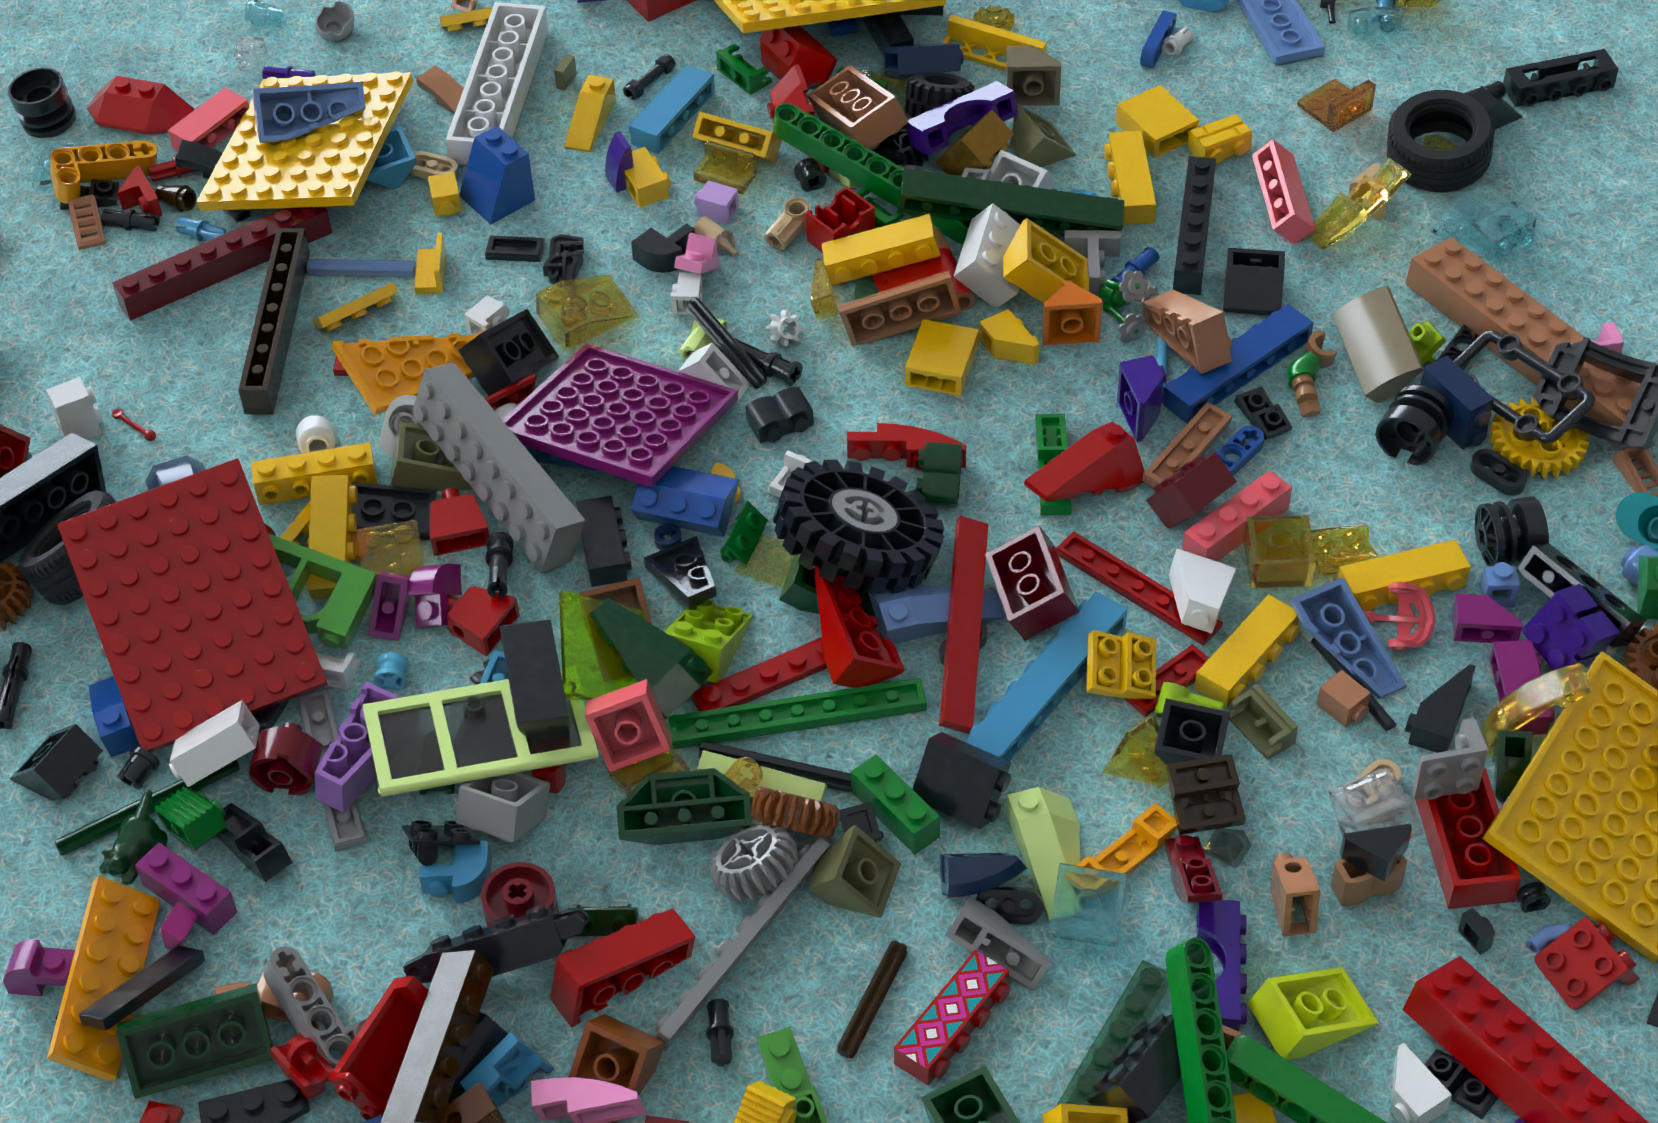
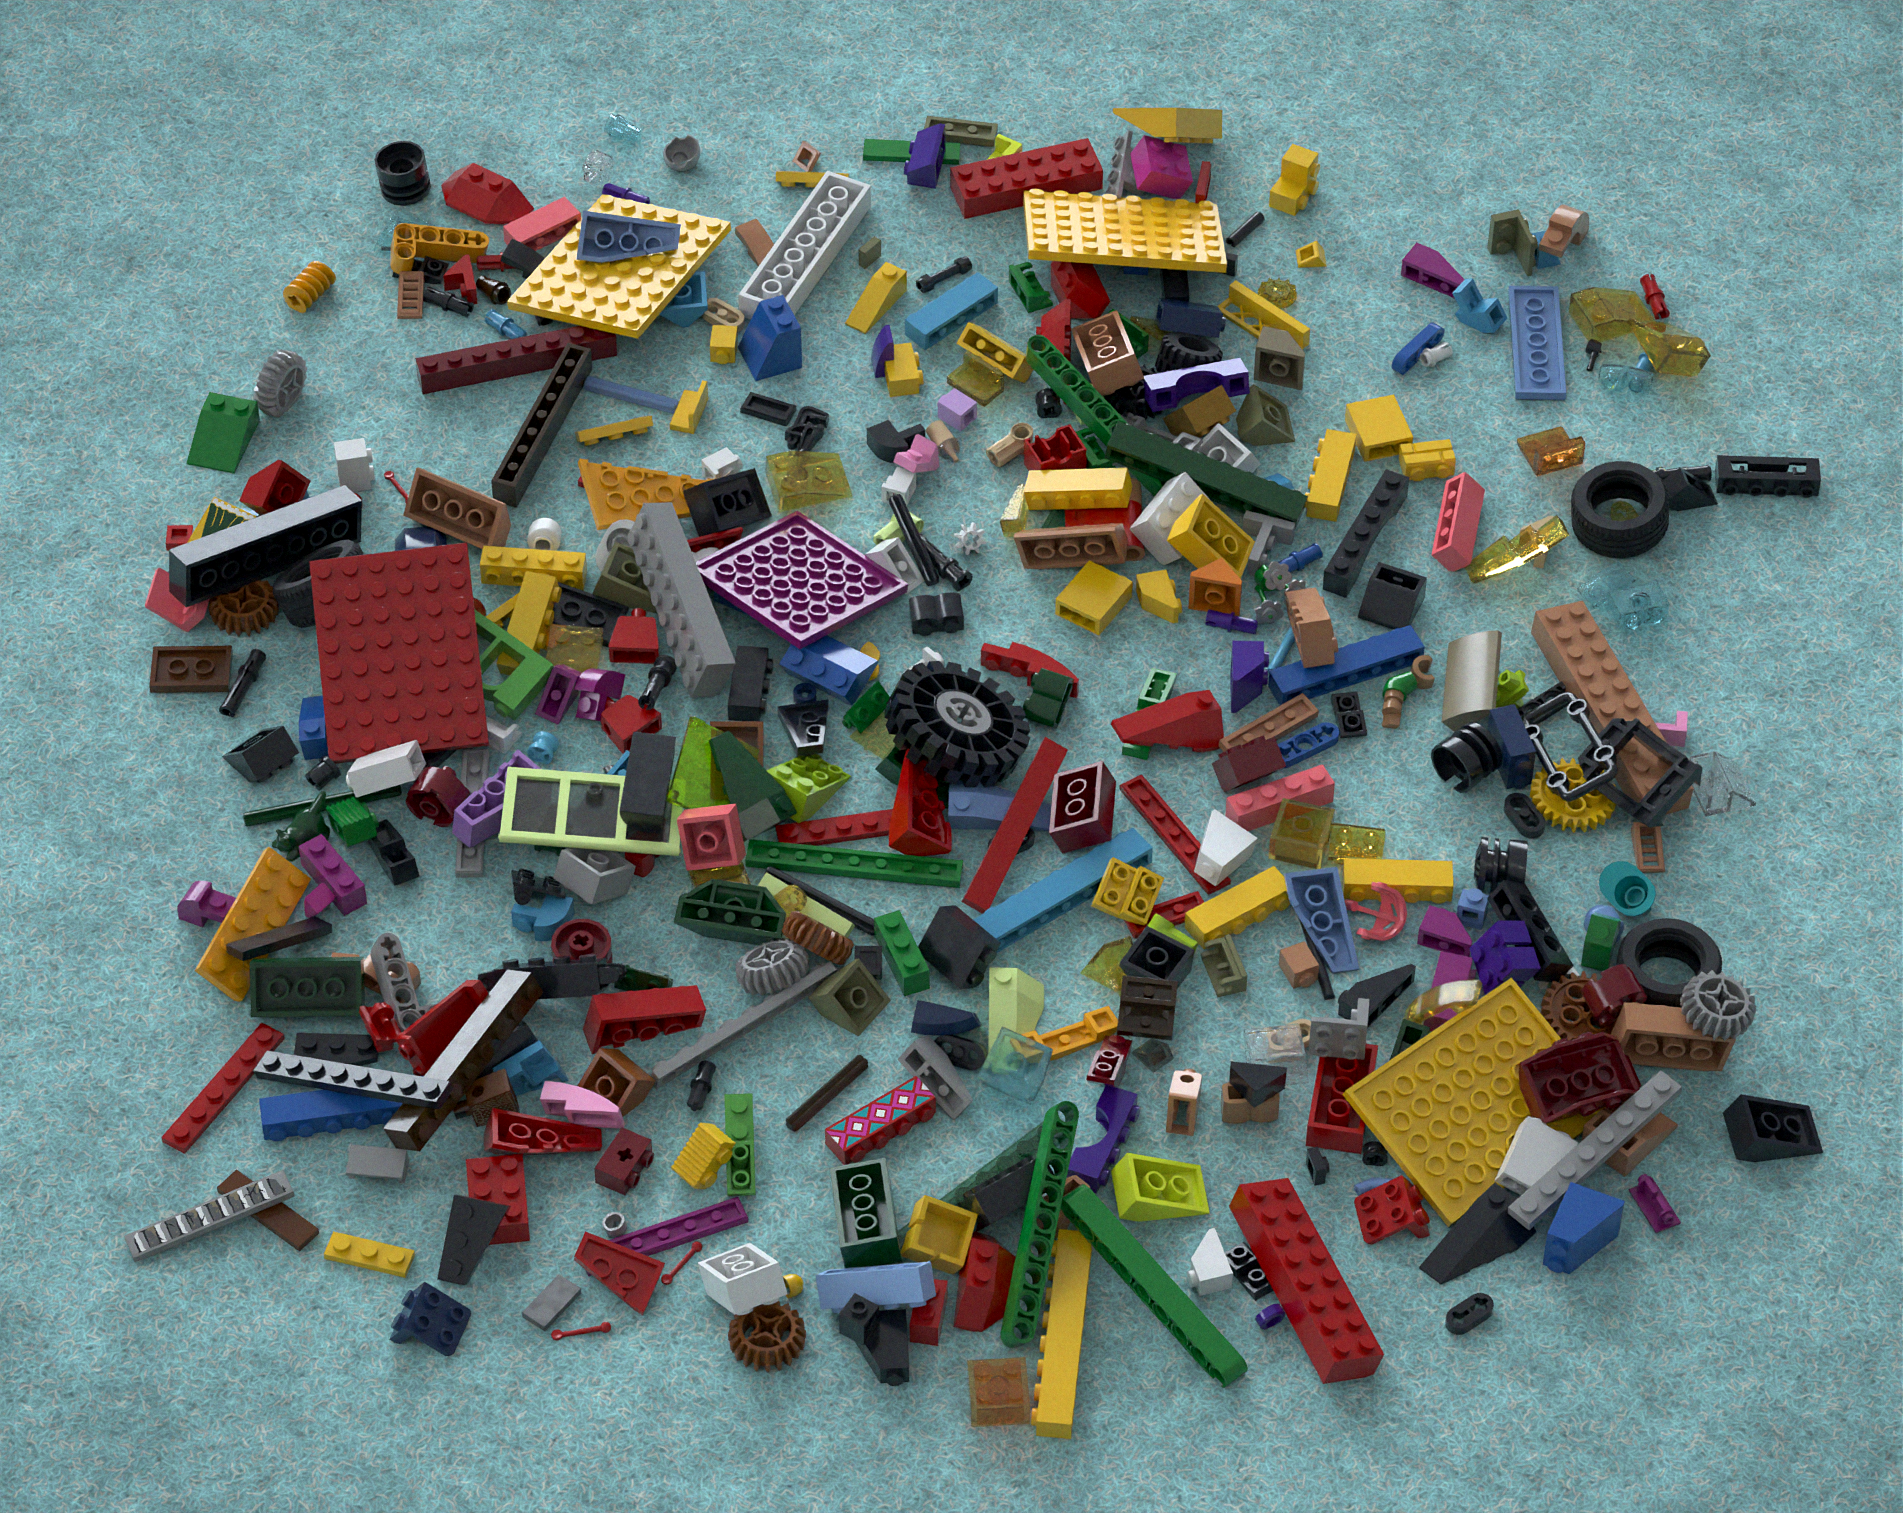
camera: 15 degrees right, 0 degrees up
(208, 430) = (457, 510): none -> nougat slope
(1096, 347) = (1230, 621): none -> dark purple axle

